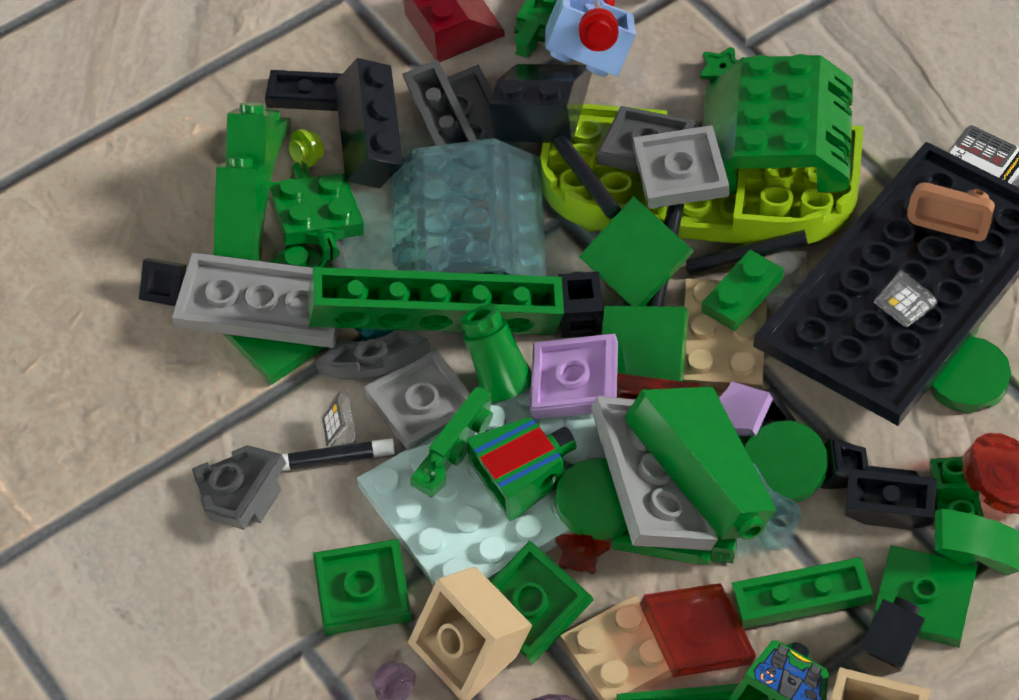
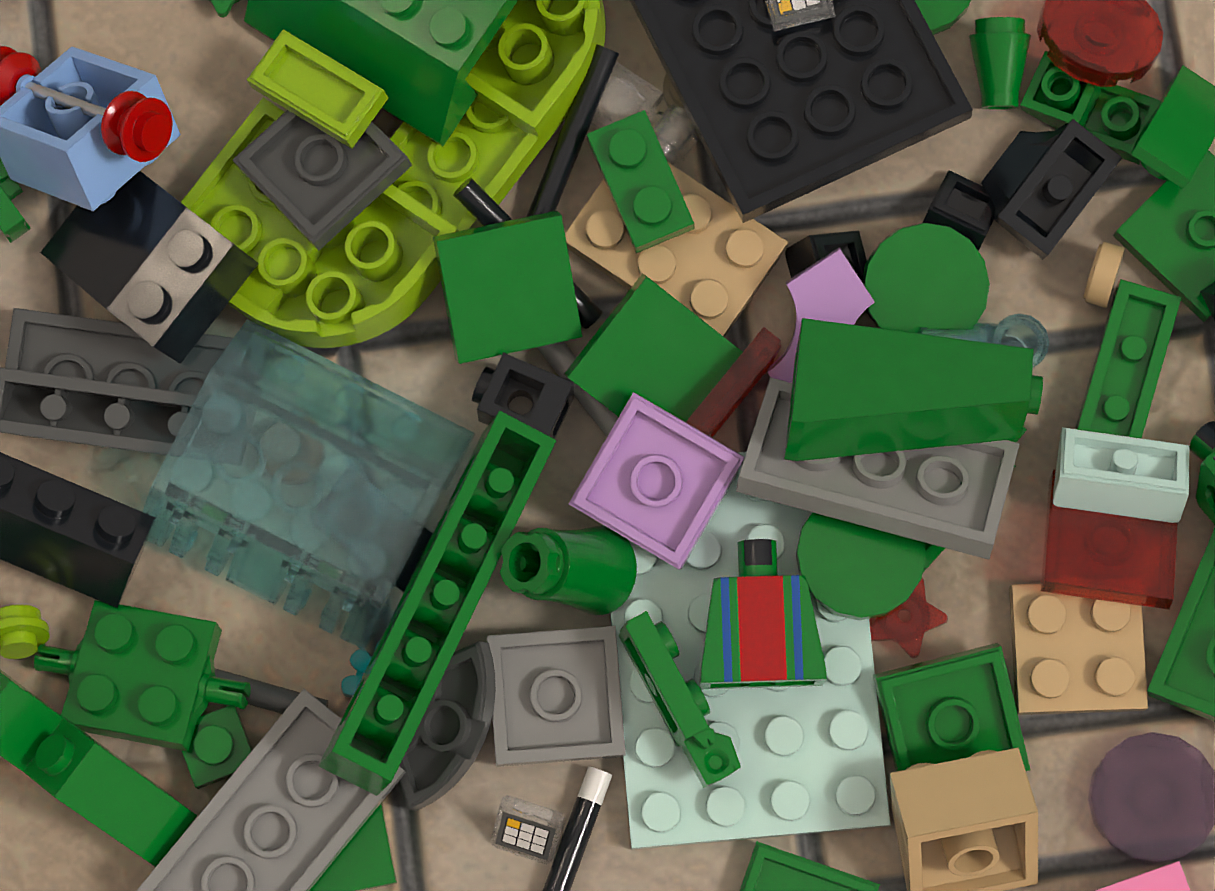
camera: 65 degrees left, 25 degrees up
(586, 176) = (344, 280): black bar -> none
(680, 167) = (426, 150): light grey plate -> none
(684, 108) = (317, 89): none -> lime tile
(738, 610) = (1121, 475): none -> light aqua slope
(859, 544) = (1103, 274): none -> tan tile
(948, 435) = (999, 60): none -> green cone

